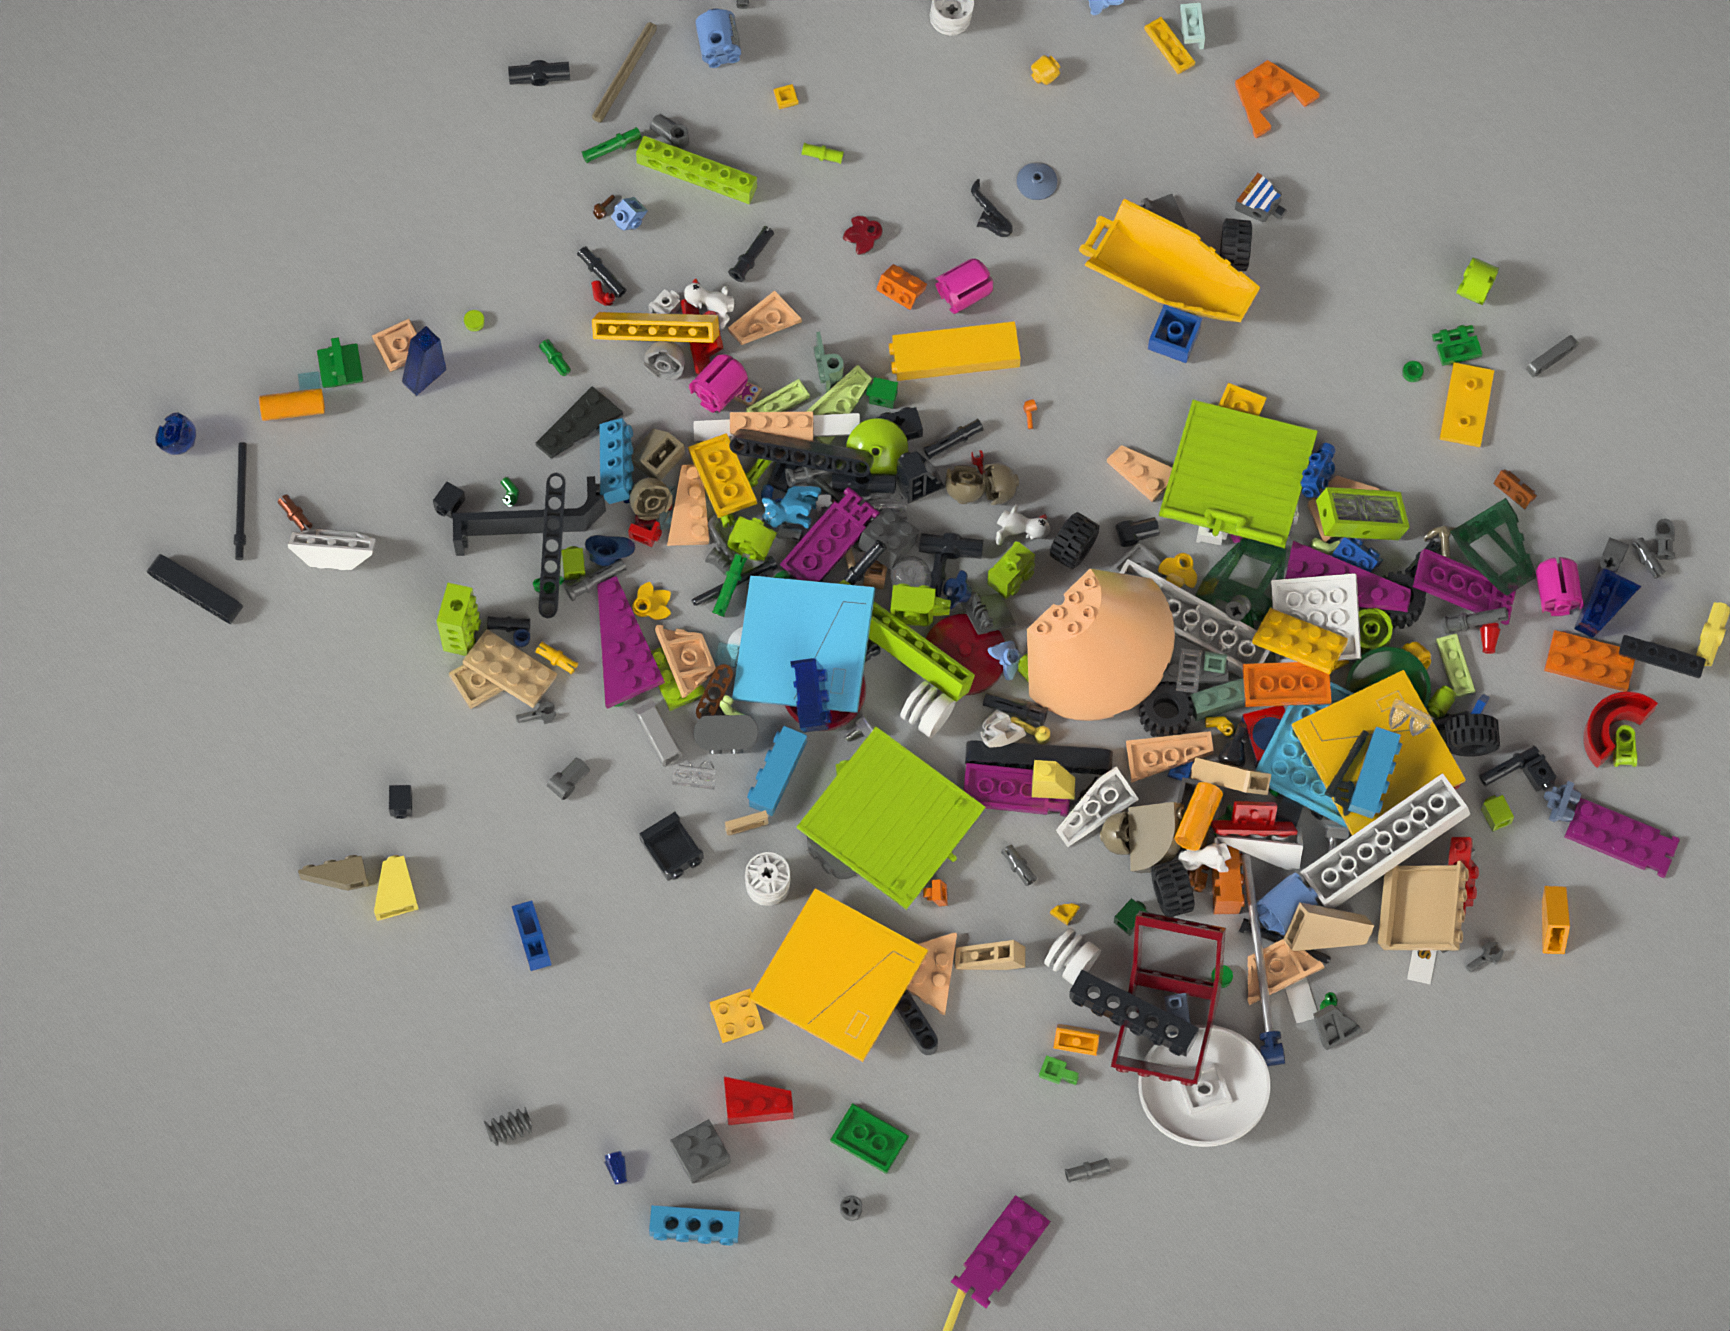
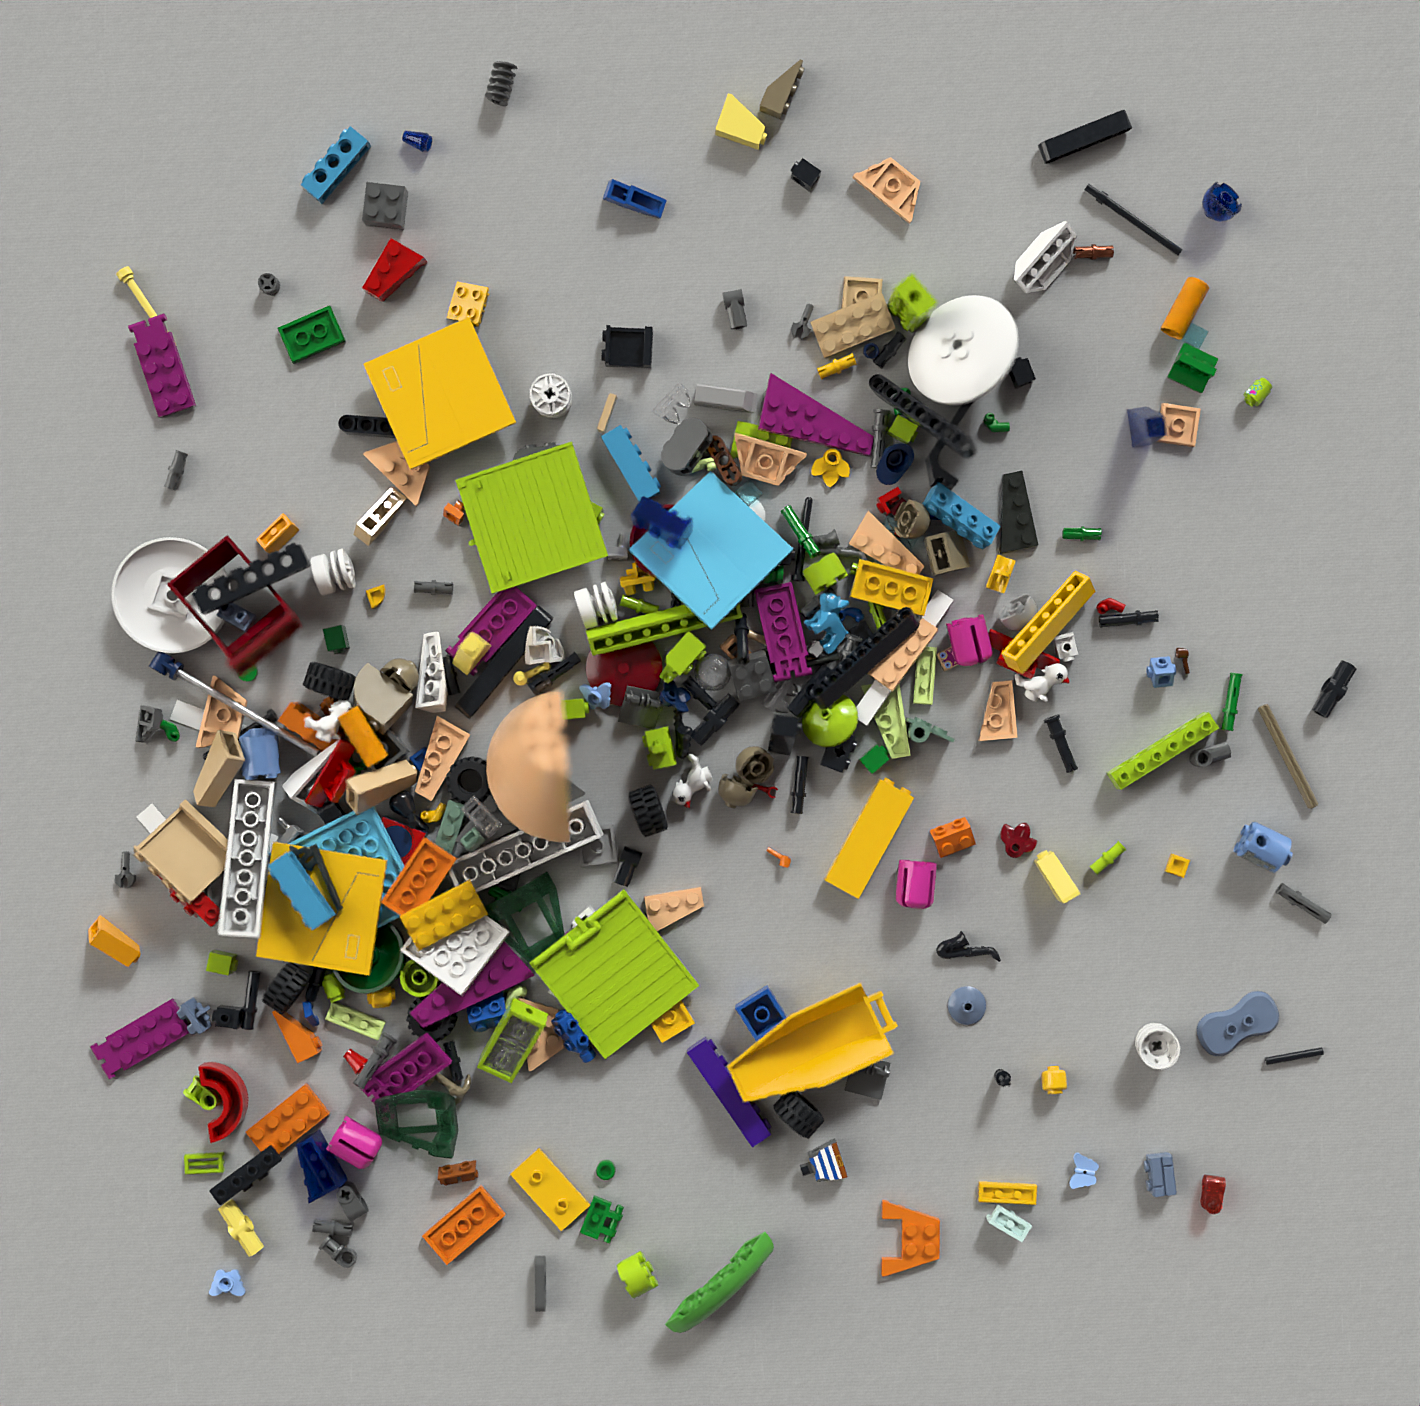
camera: 125 degrees right, 20 degrees up
(323, 299) = (1257, 392): none -> lime brick
(357, 721) = (892, 186): none -> light nougat wing
(473, 523) = (977, 366): none -> white dish
(474, 320) = (1158, 495): lime tile -> none
(641, 397) = (1000, 574): none -> yellow hips
(871, 178) = (1056, 876): none -> light yellow slope
(877, 696) = (636, 576): none -> yellow hips
(899, 678) = (638, 605): none -> lime pin
(985, 560) = (683, 735): none -> black piece
(1055, 1070) = (263, 500): bright green plate -> none
(1075, 108) = (1002, 1077): none -> black axle
(1176, 573) = (571, 870): yellow plate -> none
(1243, 607) = (503, 889): dark grey wheel -> none
(1263, 317) = (719, 1078): none -> dark purple brick
(1401, 711) = (335, 949): clear tile -> none
(1431, 206) = (722, 1285): none -> bright green brick
(1508, 698) = (298, 1037): none -> orange slope
(1555, 452) = (463, 1224): none -> orange plate
(1690, 724) = (220, 1161): none -> lime tile

